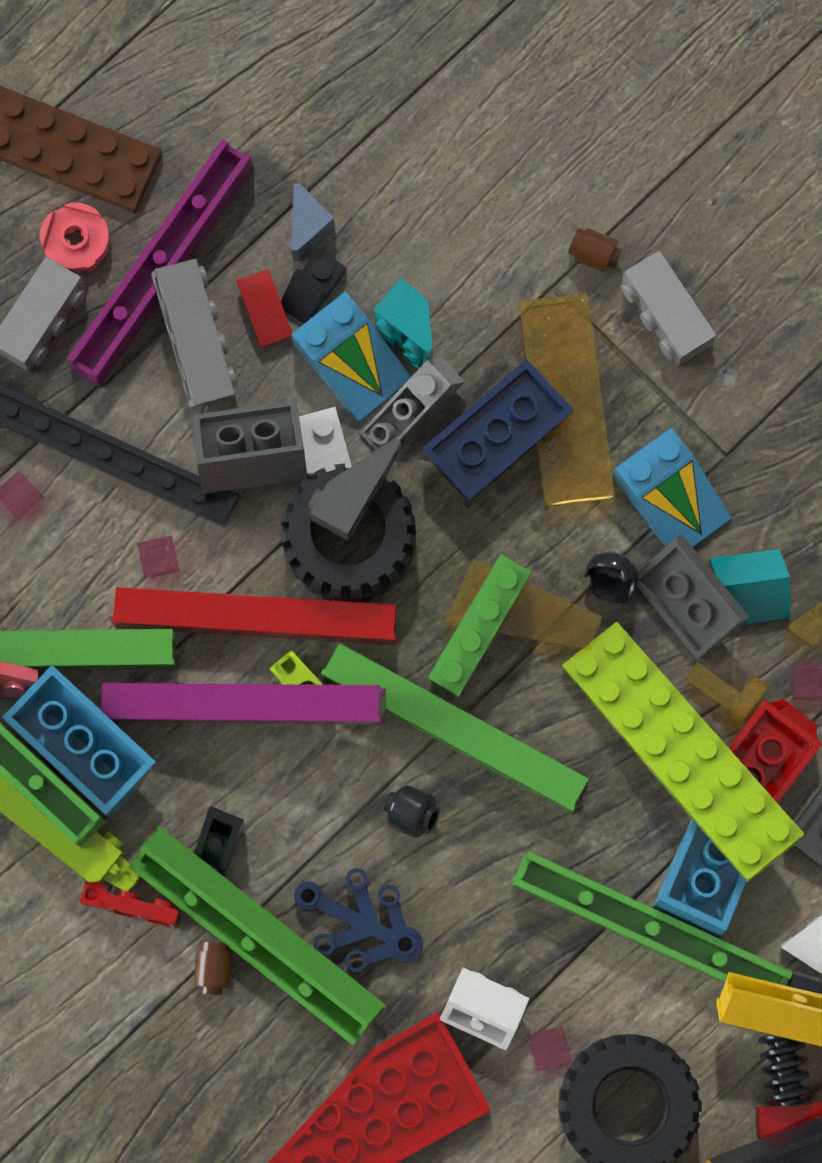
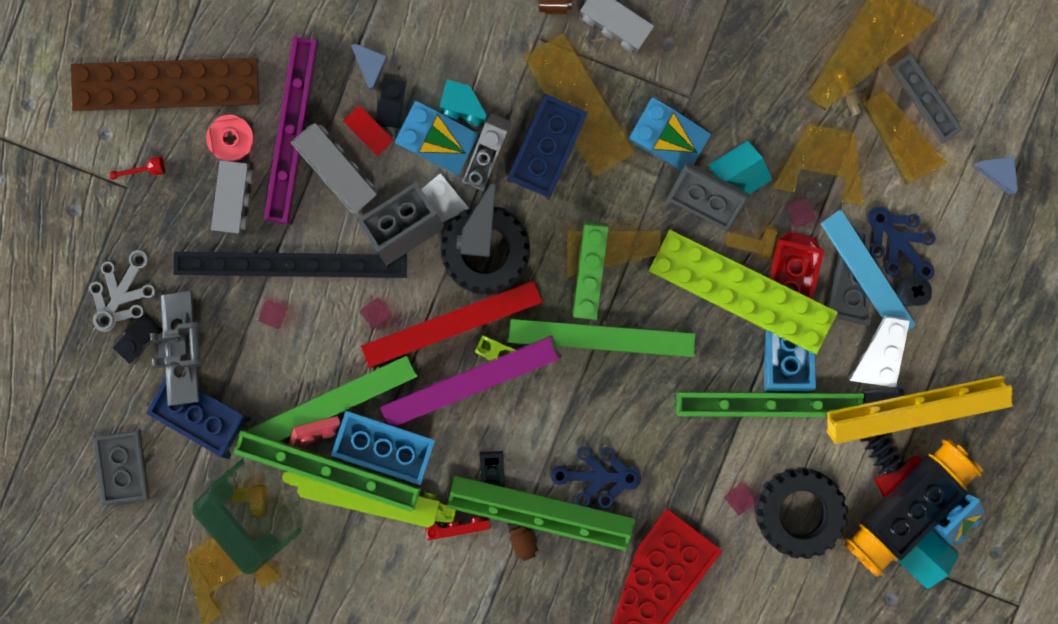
camera: 30 degrees left, 10 degrees up
(411, 811) = (598, 399): black head -> none
(484, 1008) = (693, 494): white brick -> none
(612, 577) = (655, 204): black hair -> none

